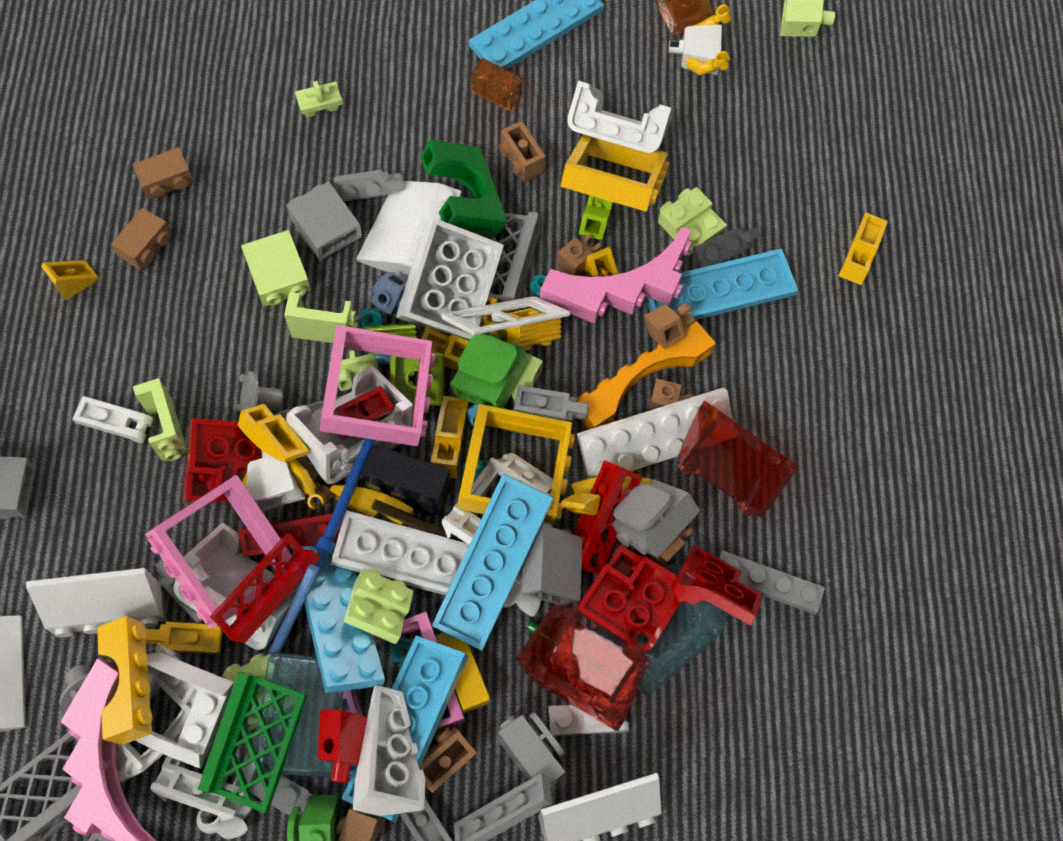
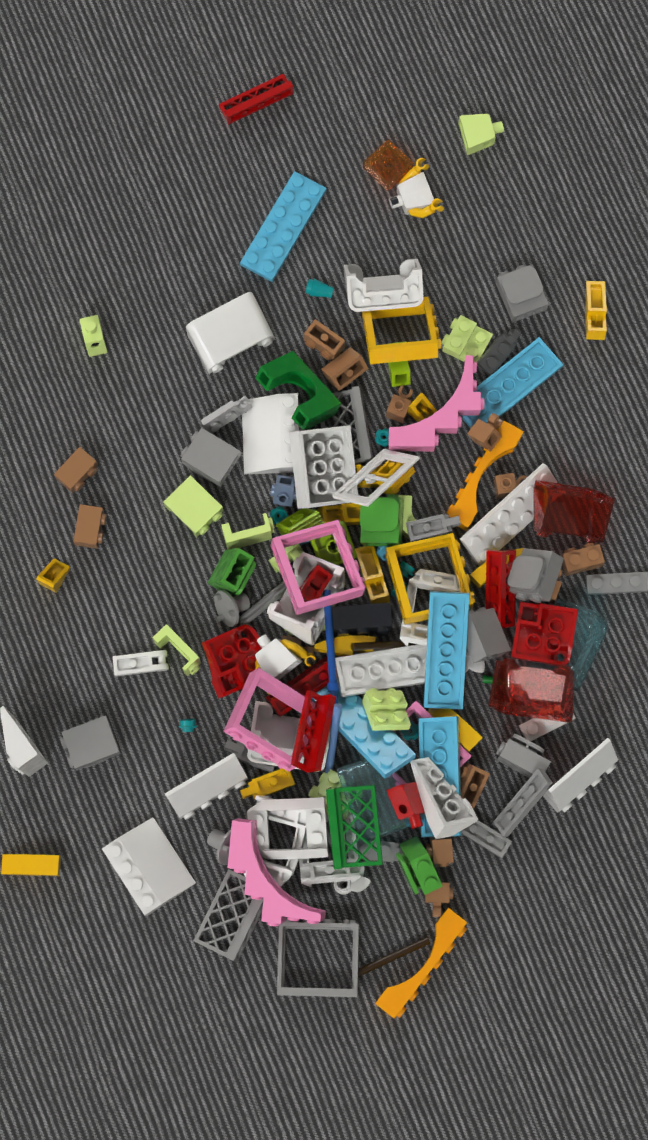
camera: 20 degrees left, 10 degrees up
(127, 518) = (188, 725): none -> teal plate
(129, 711) = (270, 844): yellow arch -> none
(265, 37) = (93, 334): none -> yellowish green torso
(271, 433) = (262, 629): yellow slope -> none
(278, 355) = (232, 571): none -> bright green brick
(319, 98) = (155, 361): yellowish green hips -> none
(417, 96) = (229, 331): none -> white windscreen
(494, 446) = (406, 569): none -> teal plate
(496, 84) = (279, 292): clear orange brick -> none
(531, 190) = (344, 368): none -> medium nougat brick
(542, 98) = (318, 289): none -> teal cone
(582, 503) = (485, 585): yellow slope -> none
(715, 581) = (592, 601): red slope -> none
(724, 528) = (582, 559): none -> medium nougat brick
(782, 193) = (522, 292): none -> light grey brick

